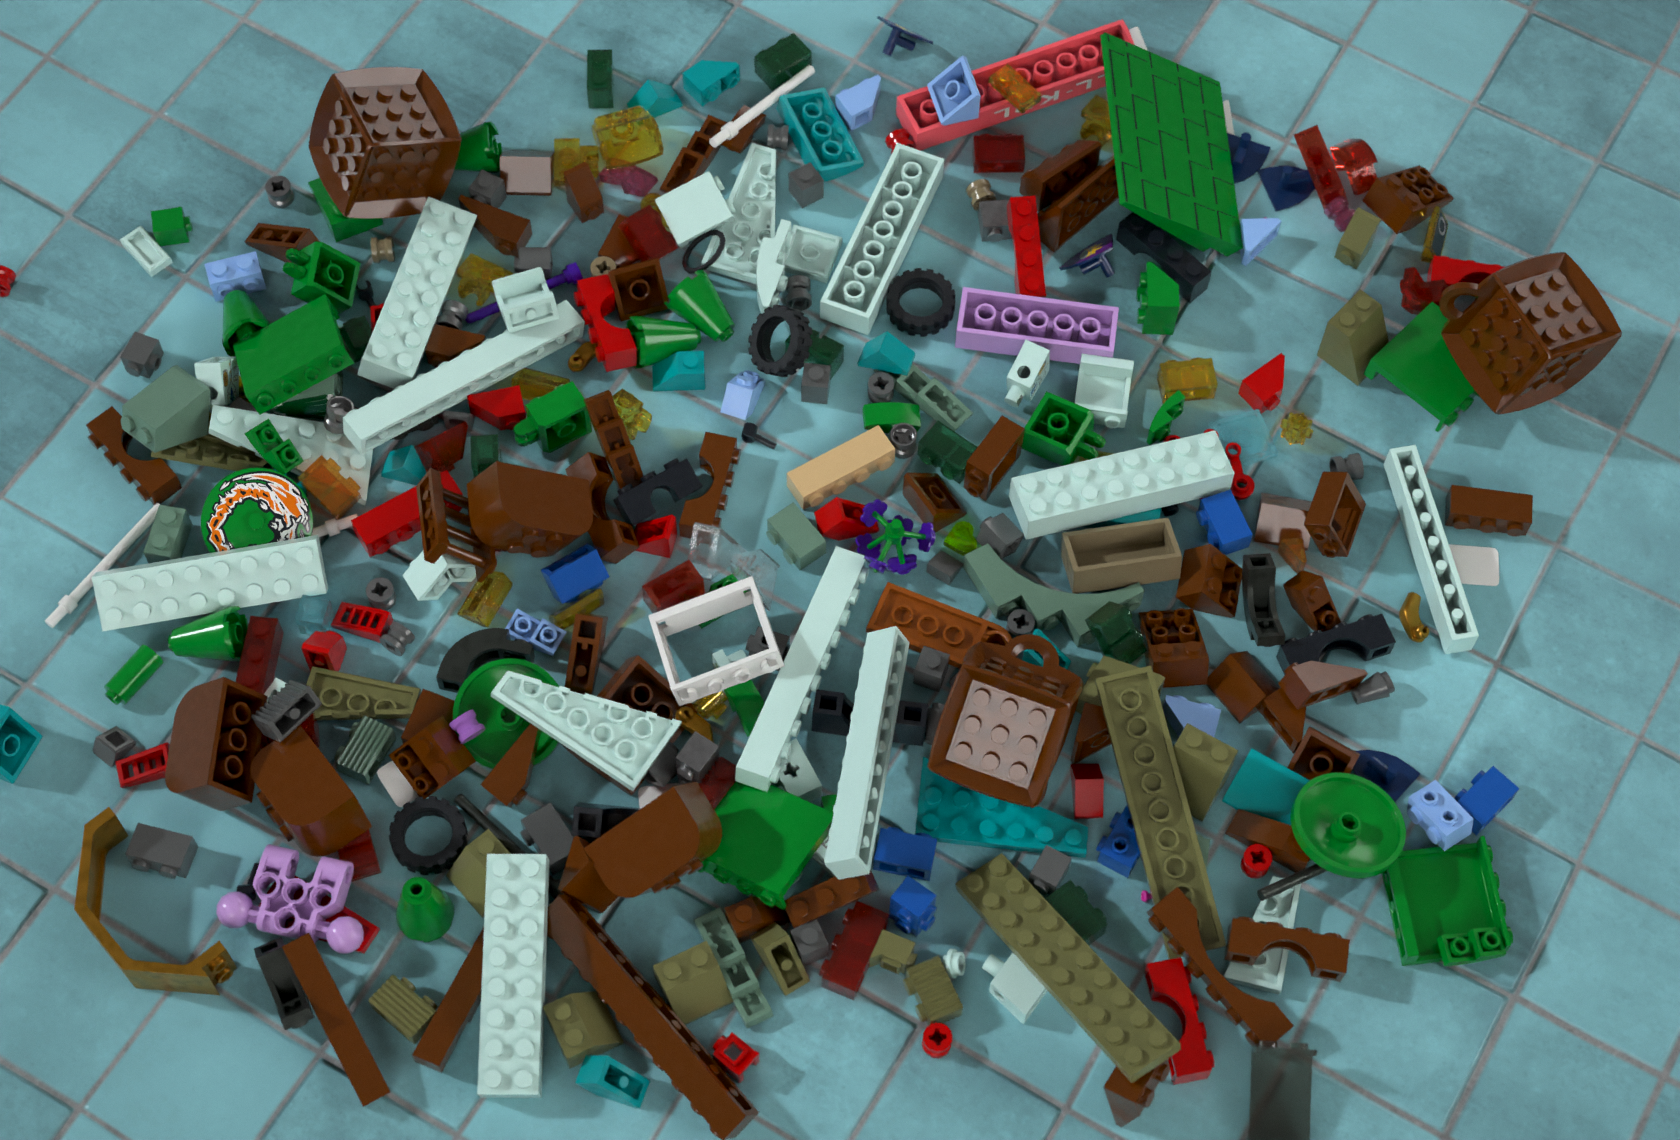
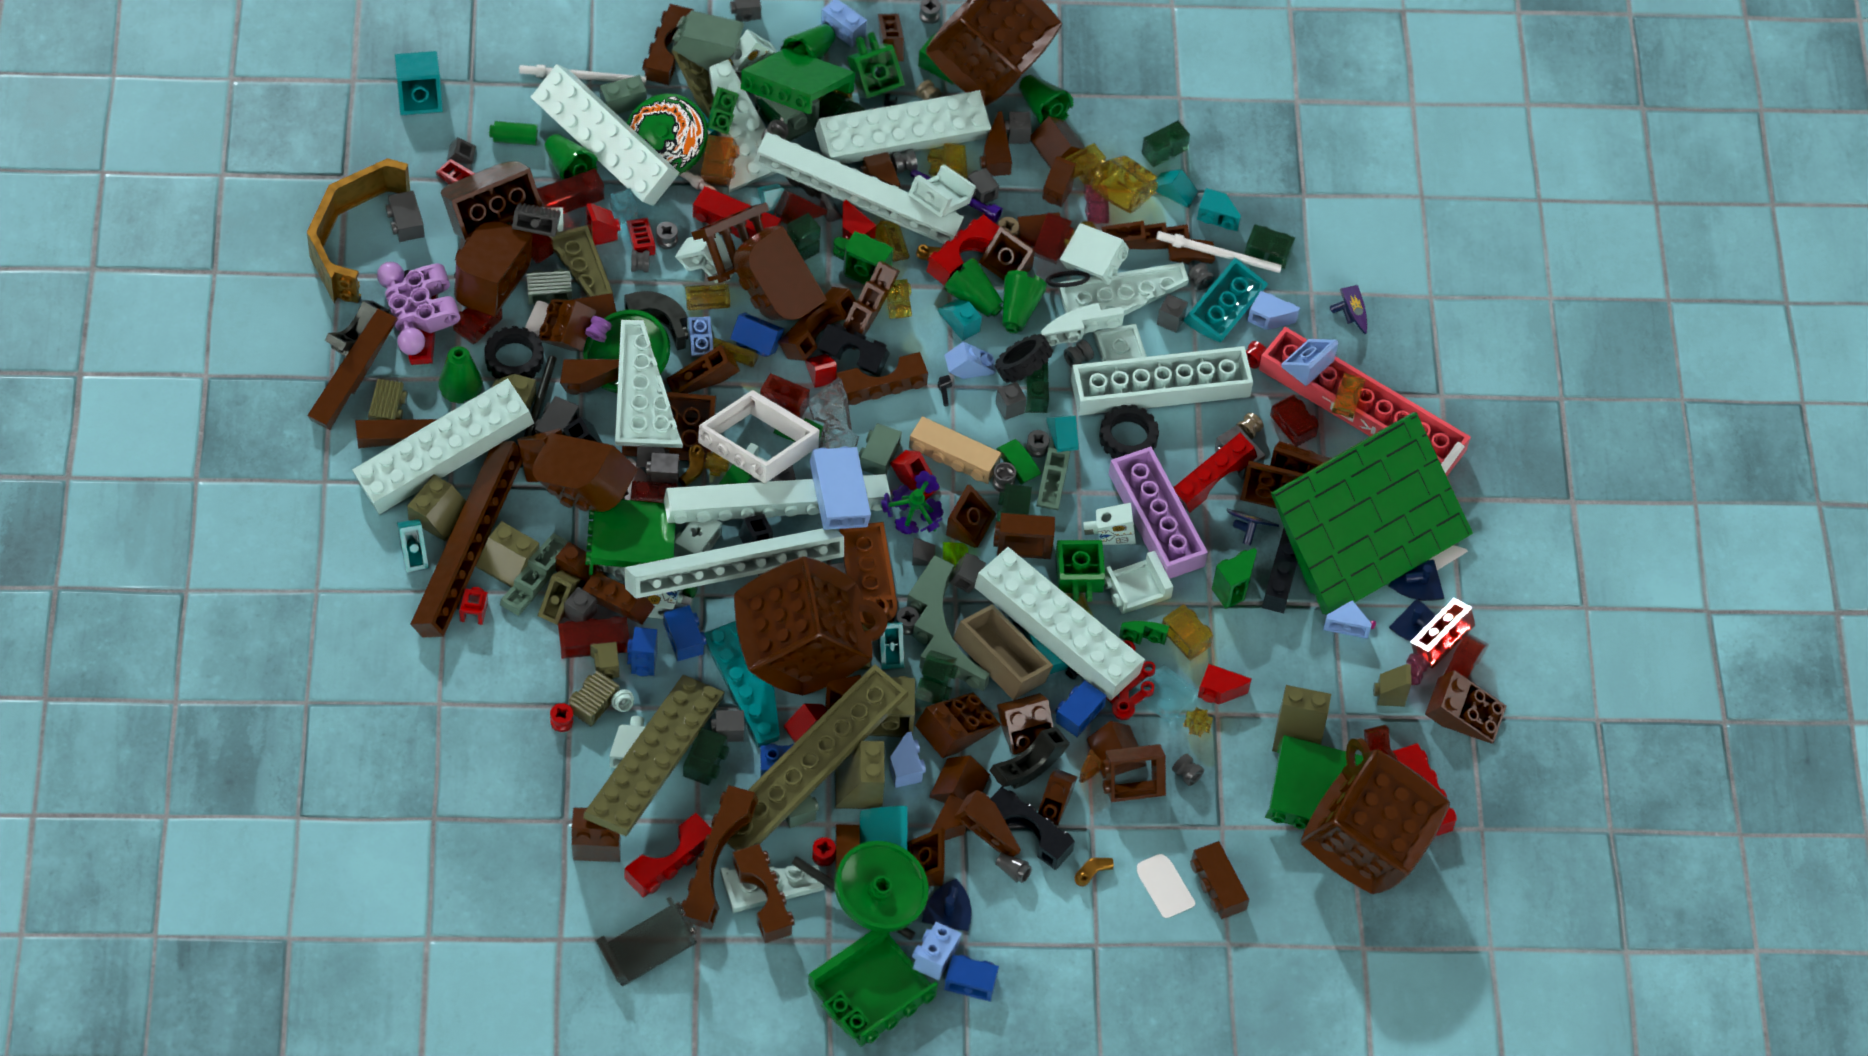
camera: 55 degrees right, 5 degrees down
(836, 595) = (840, 488): none -> light blue brick
(1430, 550) = (1154, 851): light aqua brick -> none
(1435, 235) = (1444, 742): slope -> none

